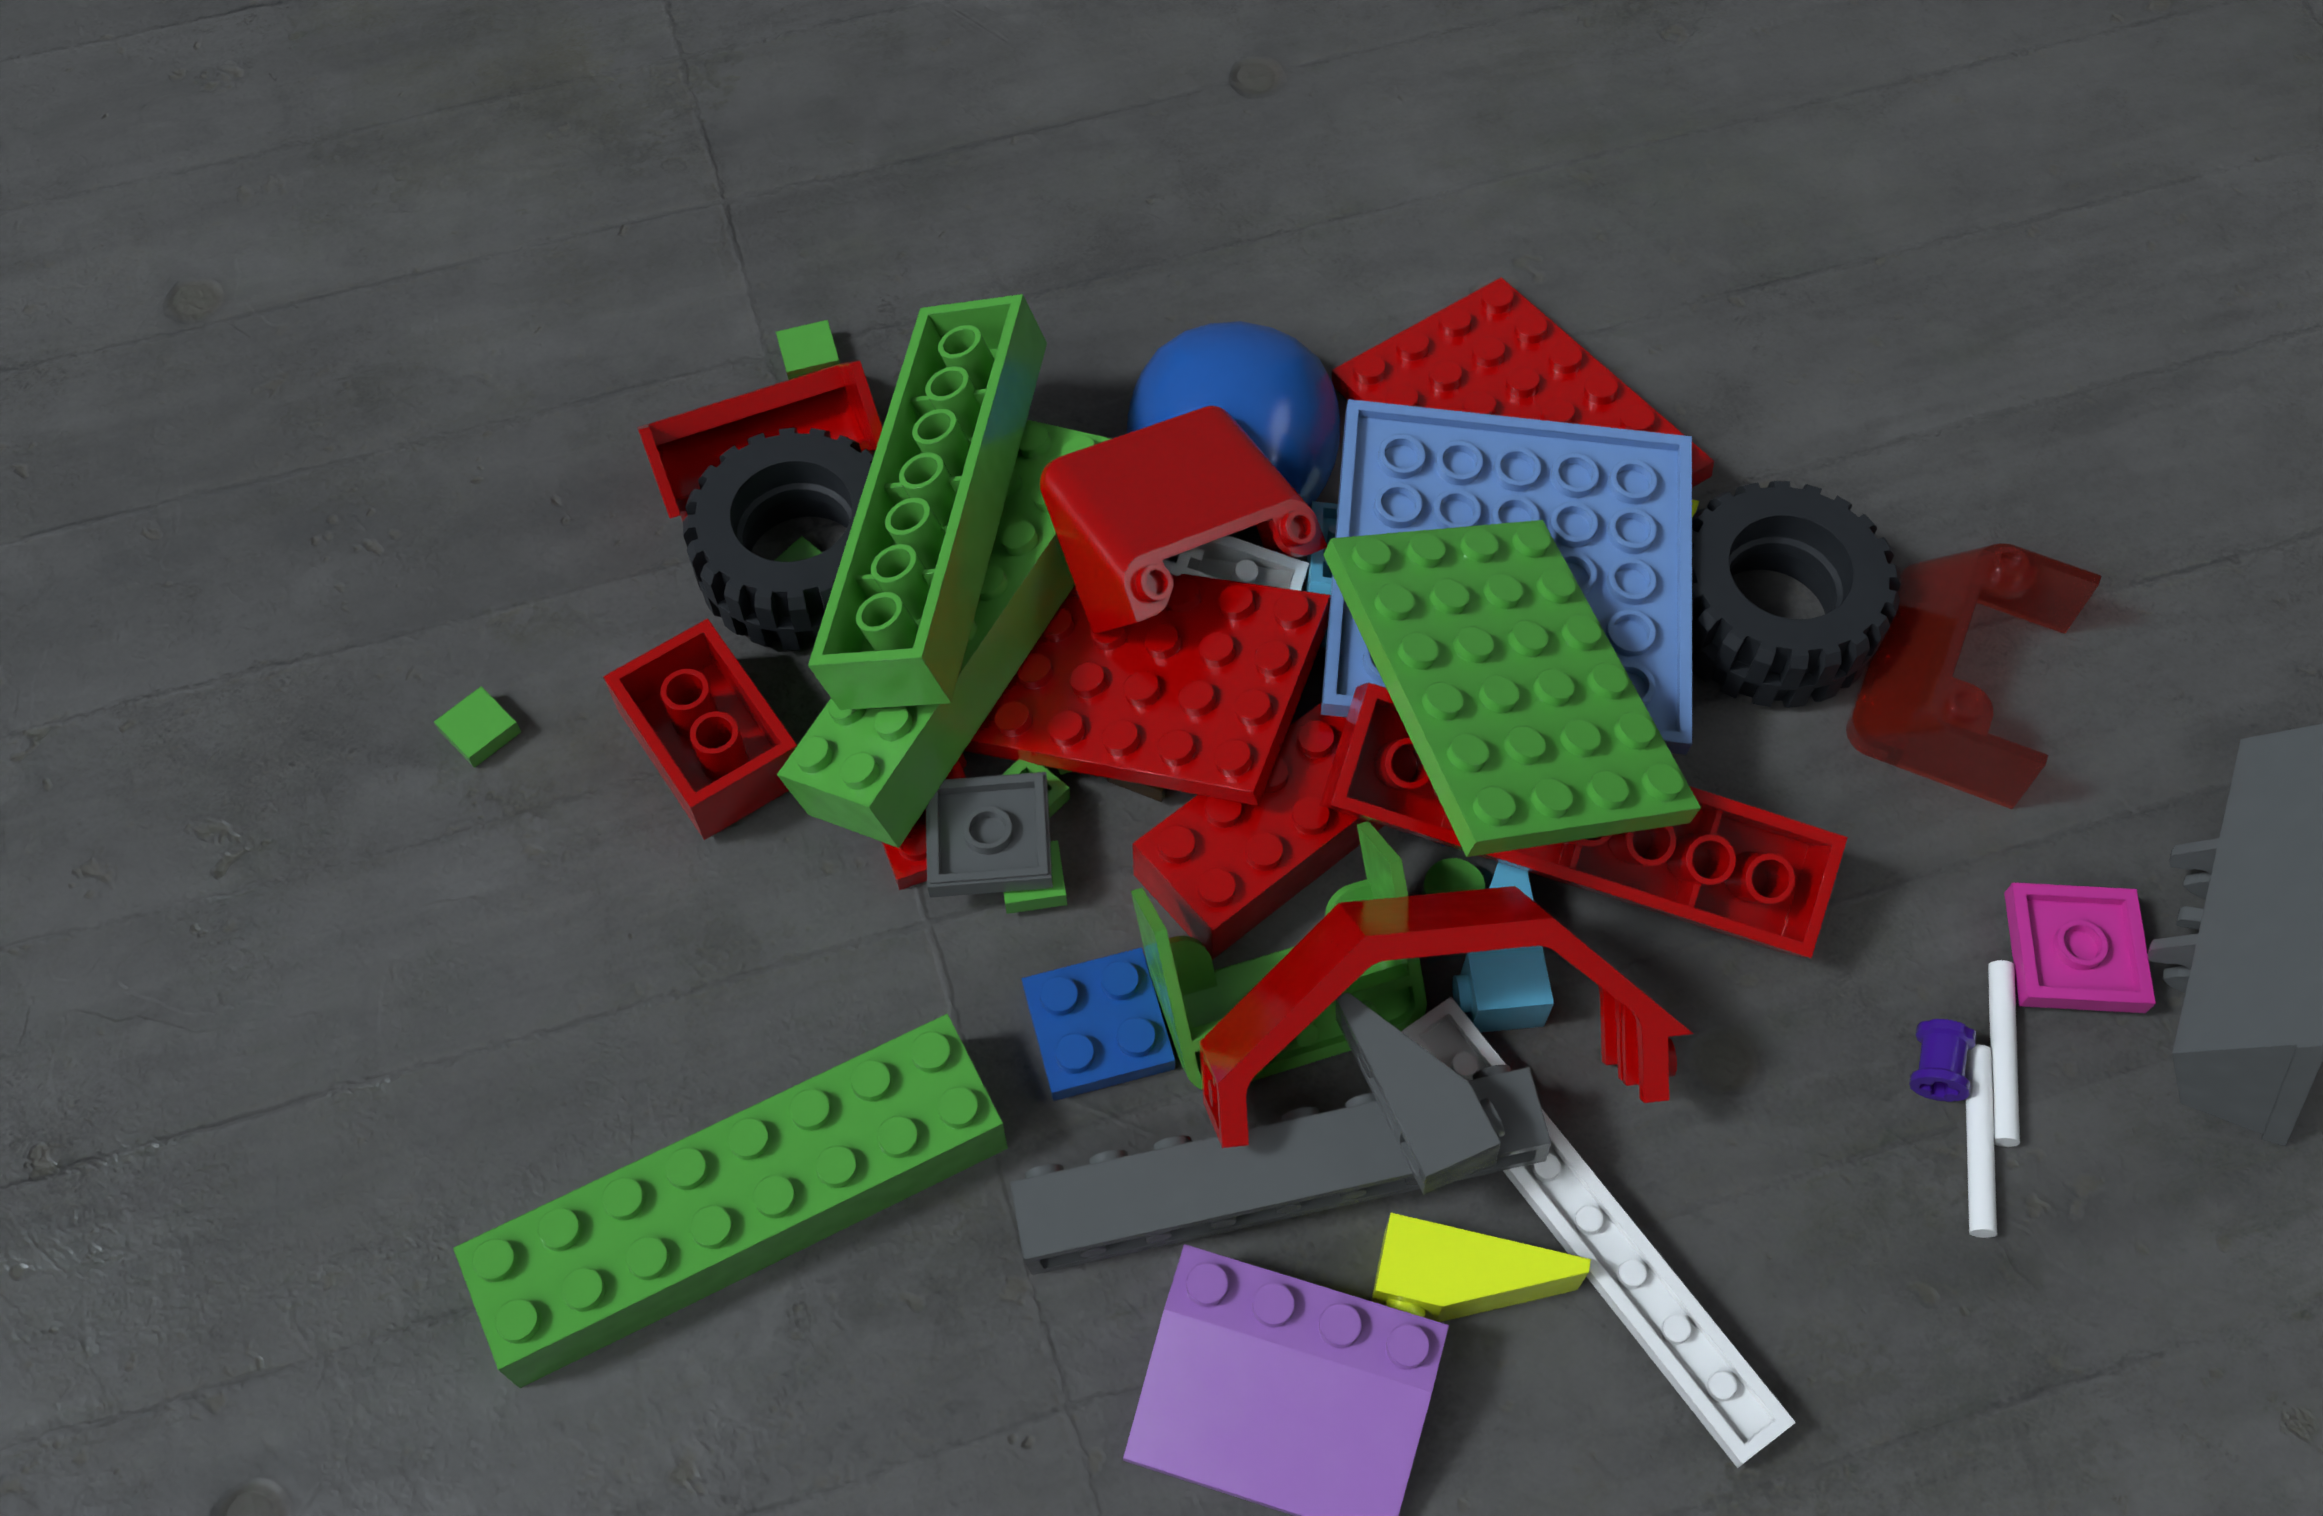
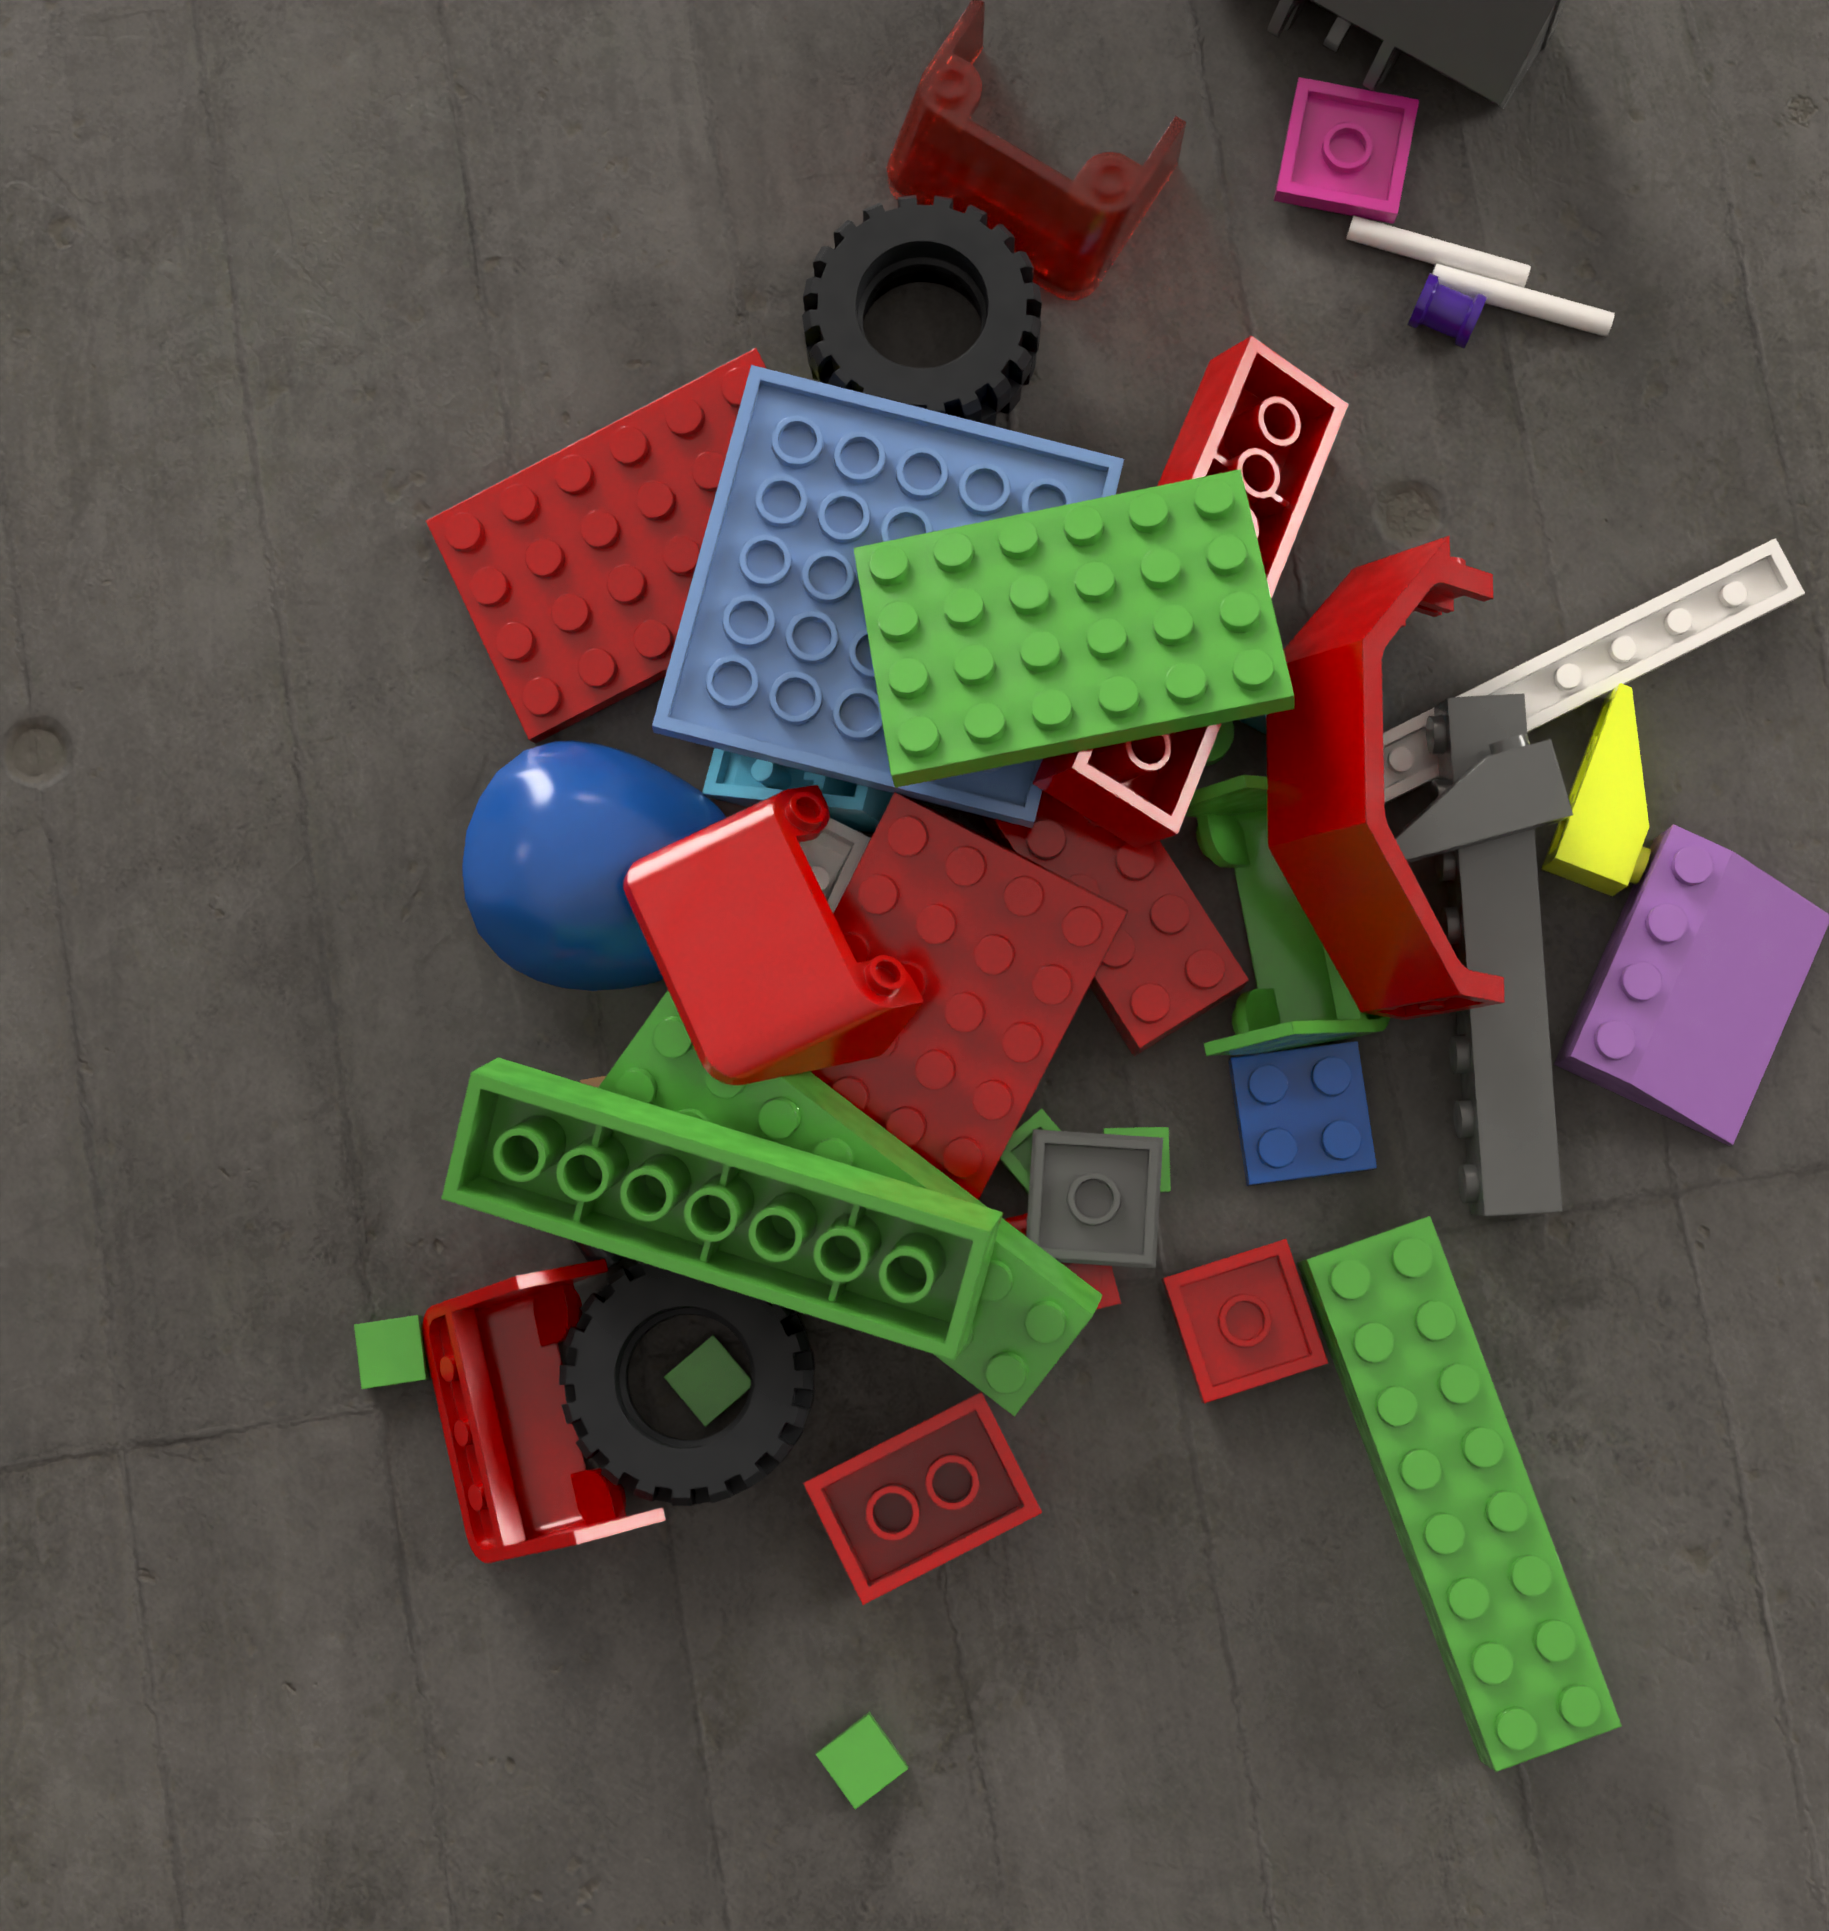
camera: 80 degrees left, 20 degrees up
(888, 982) = (1244, 1321): none -> red plate

